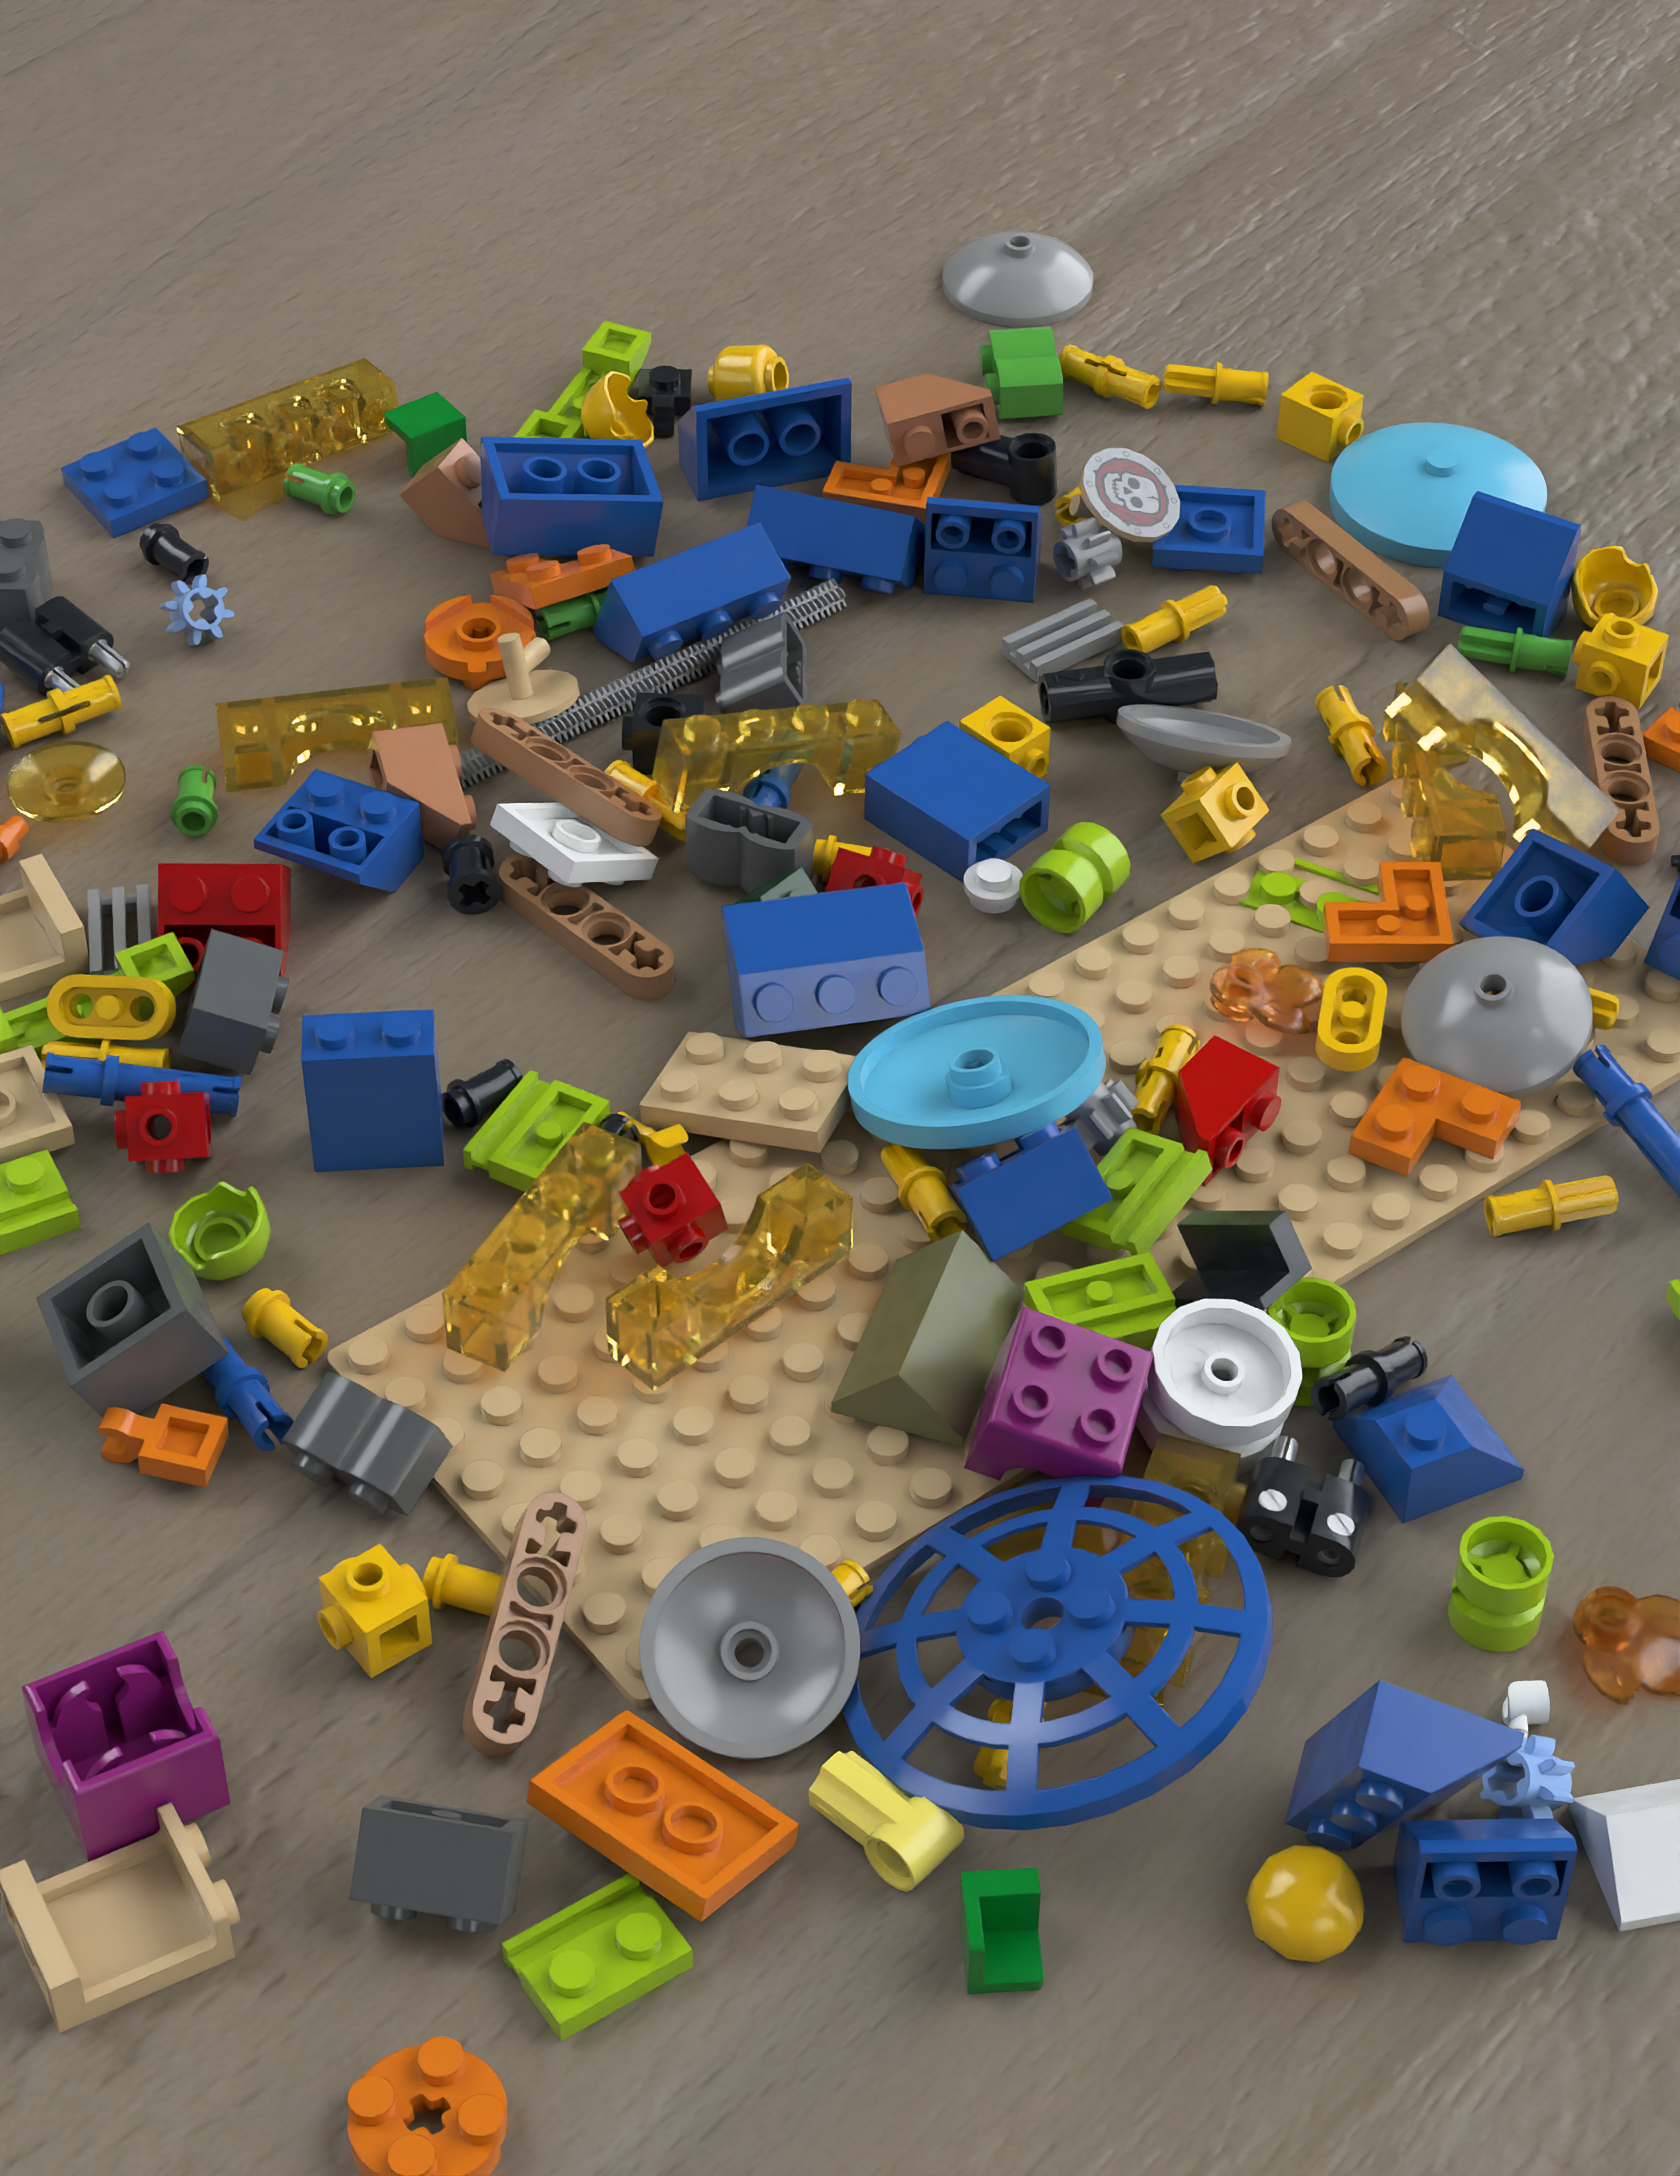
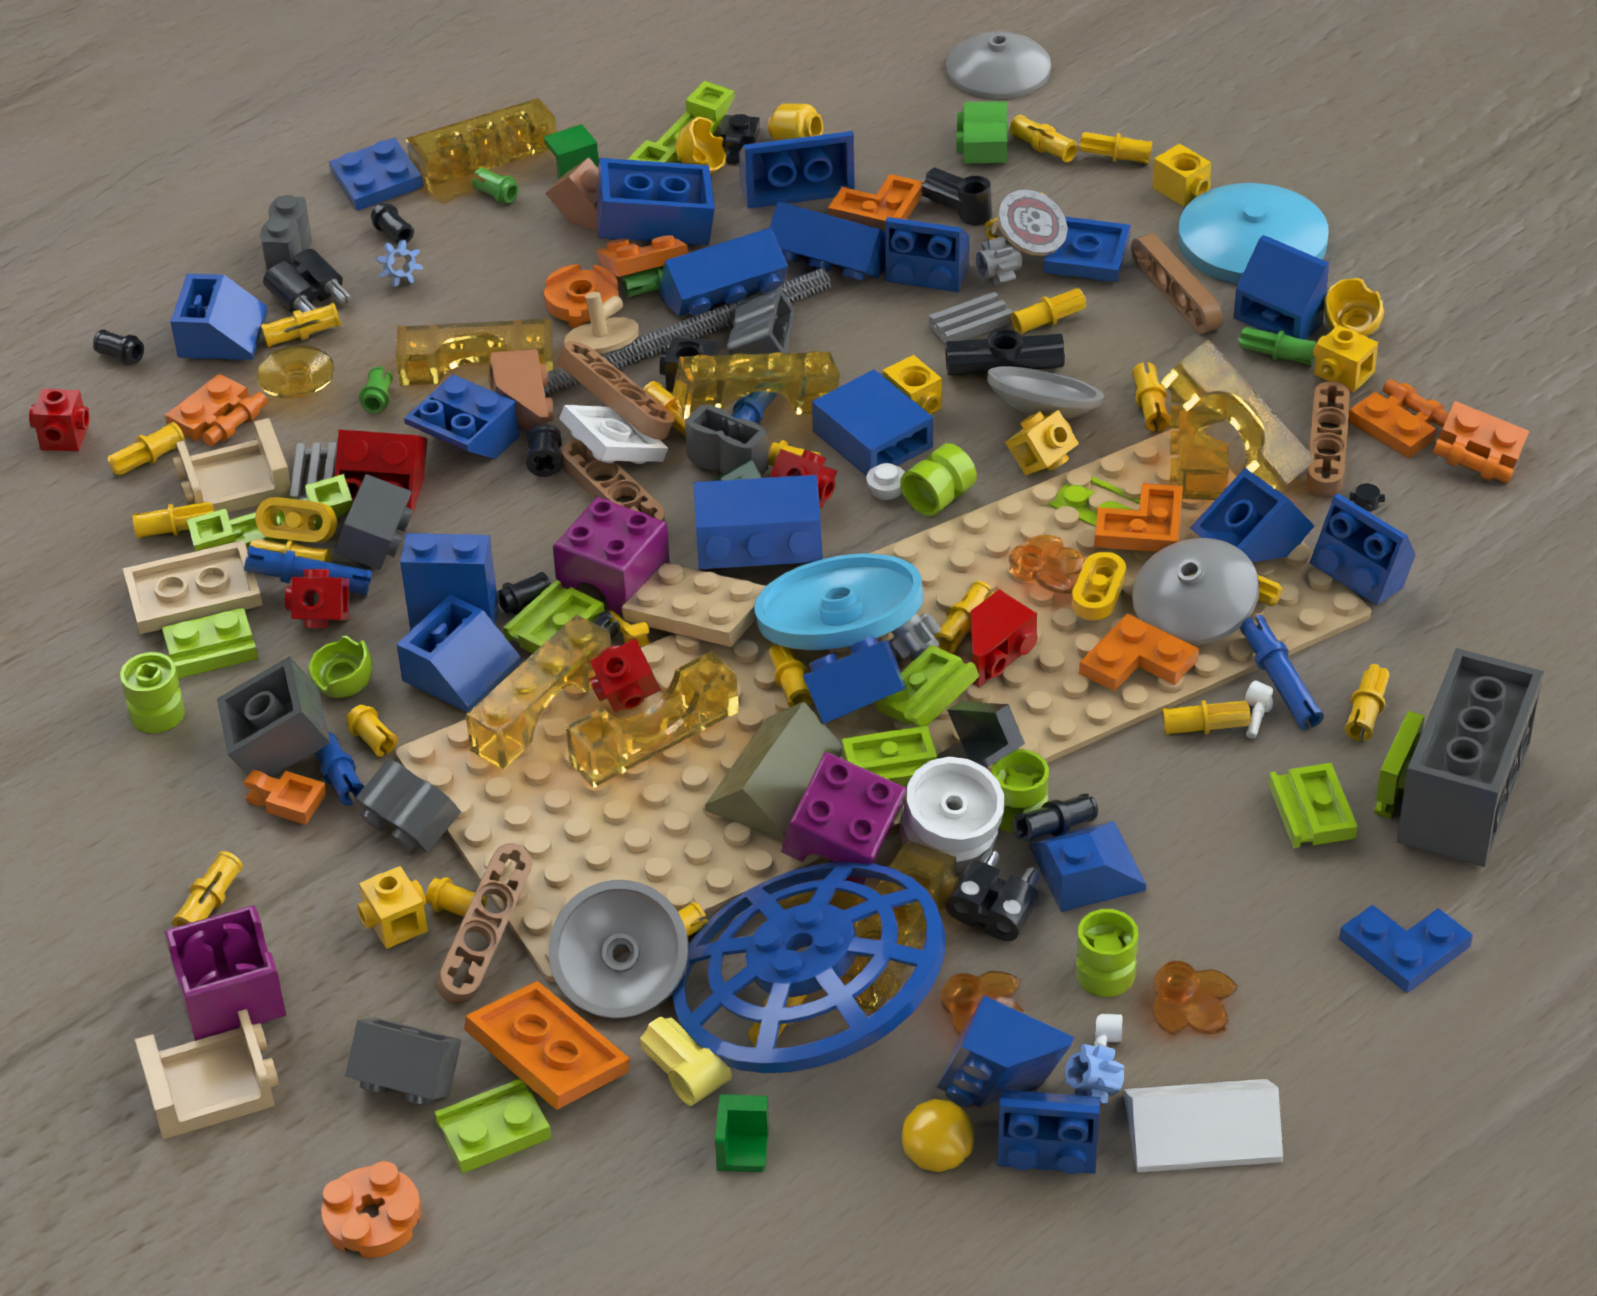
camera: 10 degrees right, 0 degrees up
(85, 1579) = (219, 873): none -> yellow pin
(399, 1198) = (456, 654): none -> blue slope
(610, 1019) = (611, 550): none -> magenta piece
(934, 417) = (910, 161): nougat slope -> none
(1328, 1672) = (964, 992): none -> clear orange plate
(1623, 1167) = (1260, 698): none -> white hand

